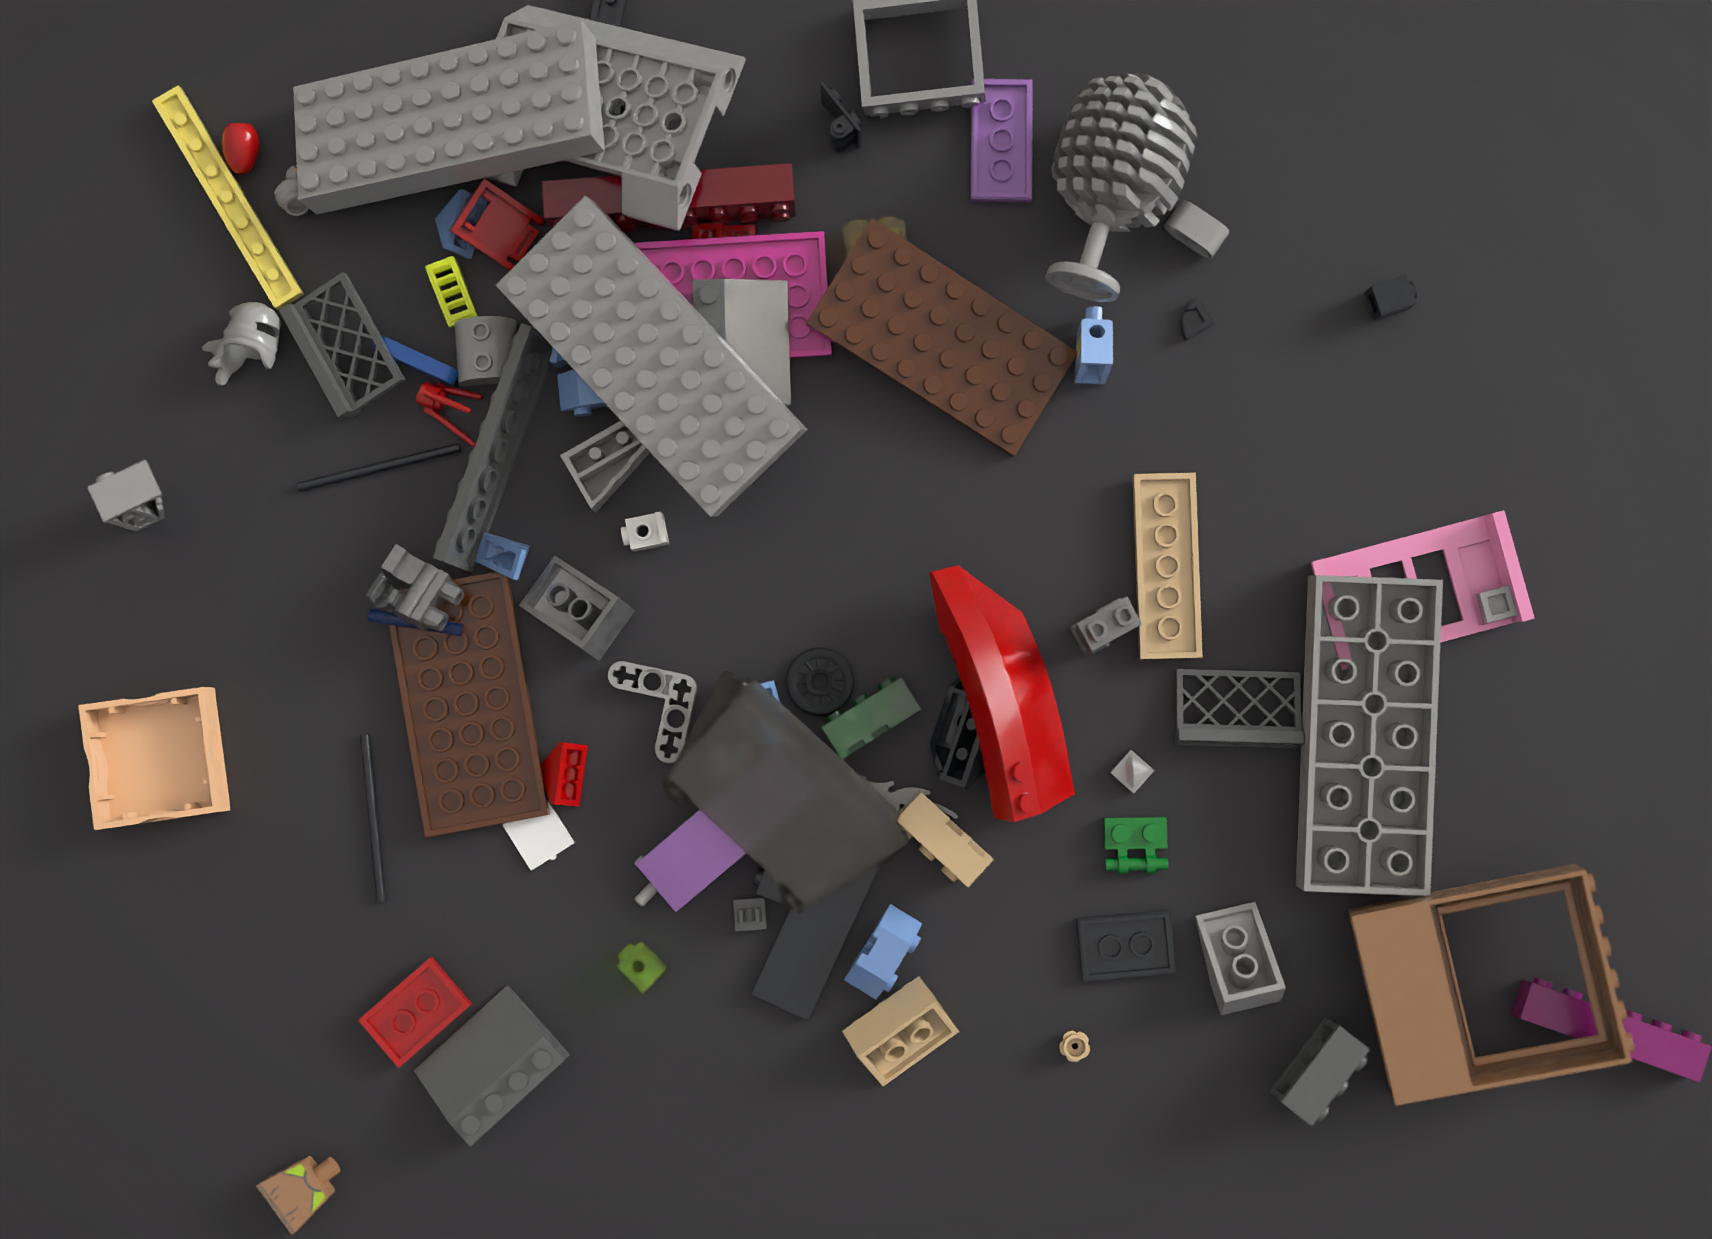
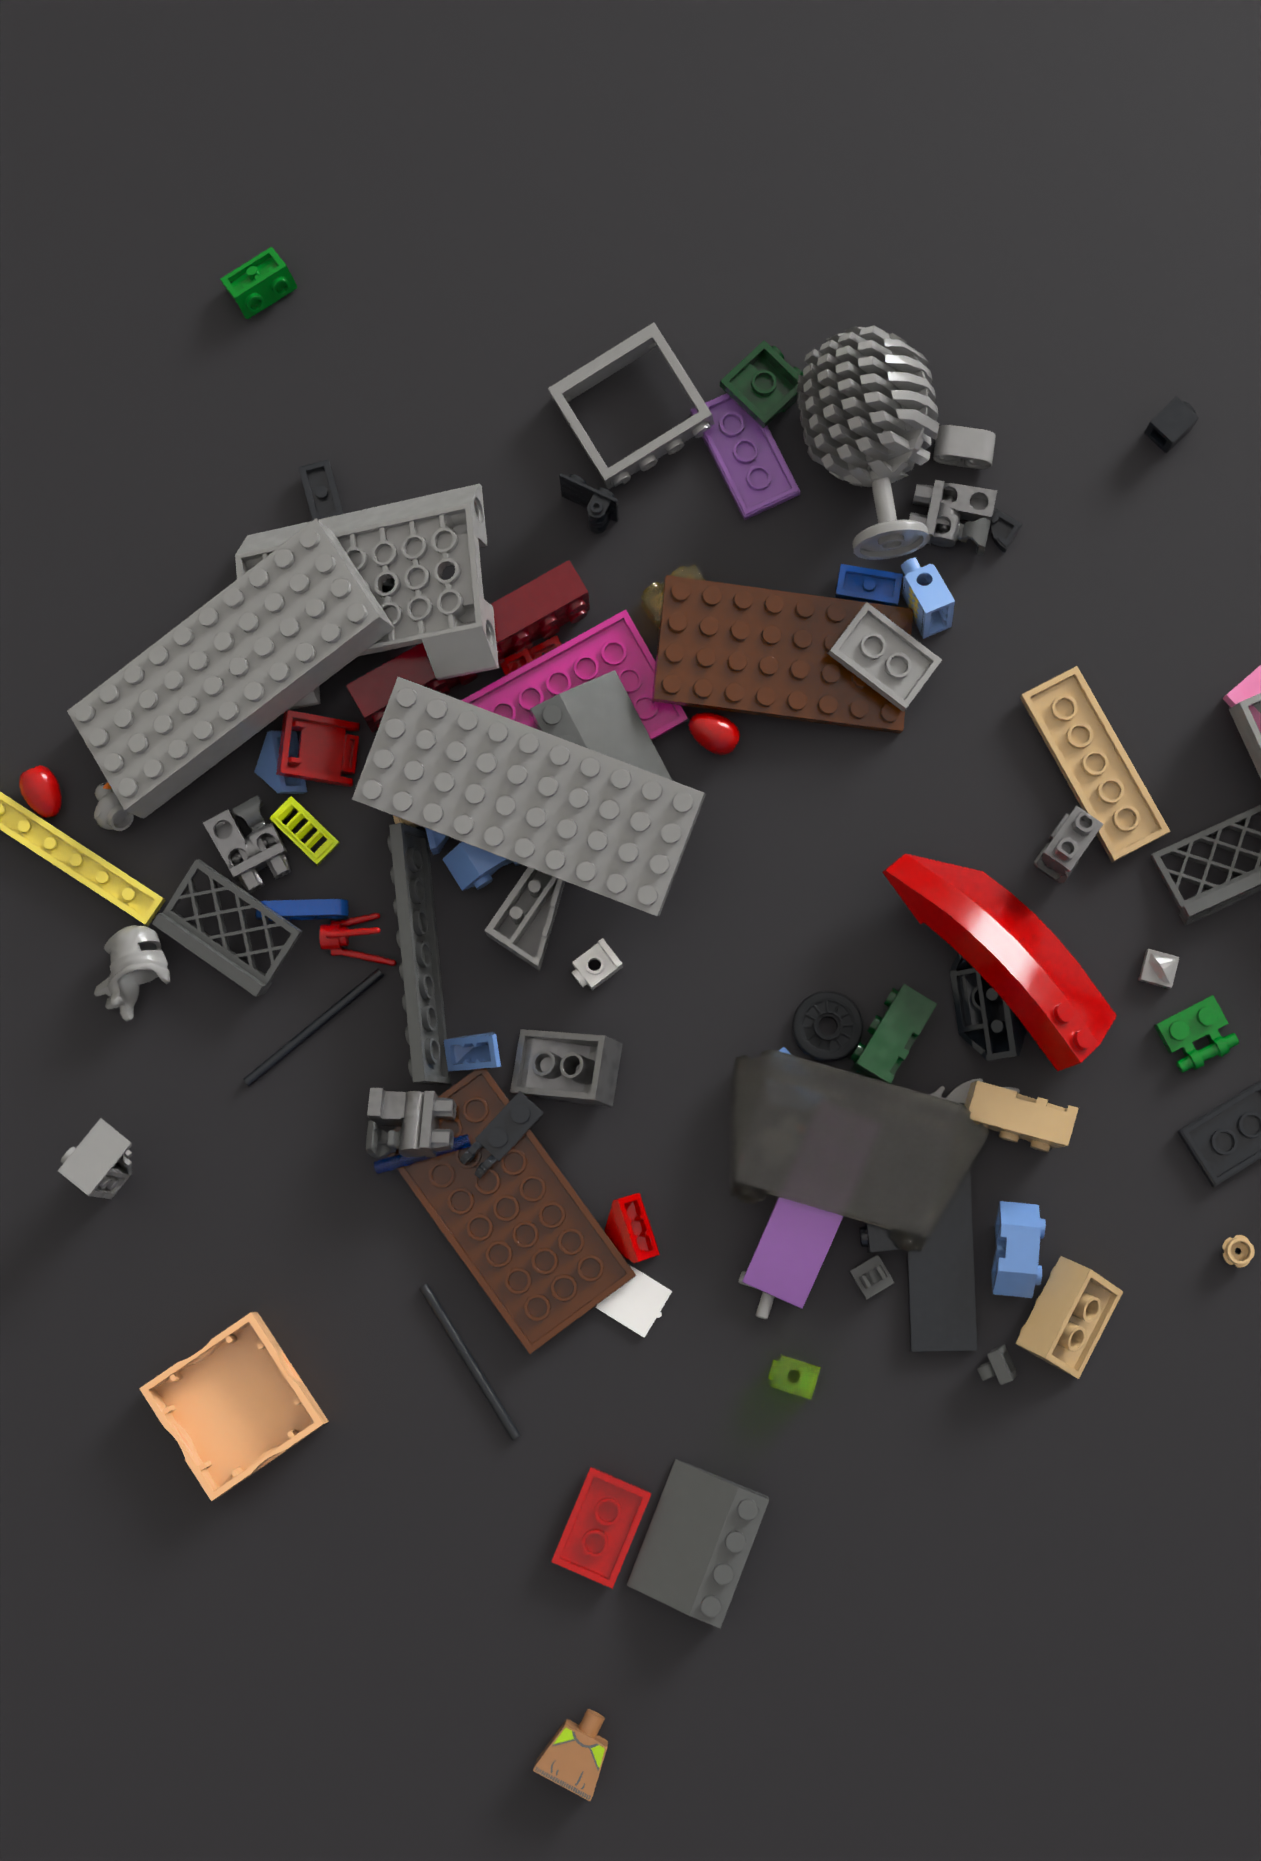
camera: 20 degrees left, 5 degrees down
(393, 289) = (249, 854): none -> flat silver hips
(483, 348) = (361, 869): light grey brick -> none
(494, 637) = (504, 1132): none -> black hinge
(665, 691) = (688, 1106): light grey beam -> none
(819, 1042) = (999, 1365): none -> dark grey tile
(848, 378) = (714, 732): none -> red animal
(1028, 383) = (884, 656): none -> light grey plate
(1045, 86) = (763, 383): none -> dark green plate
(1049, 312) = (868, 585): none -> blue plate
(1154, 275) = (948, 505): none -> flat silver hips

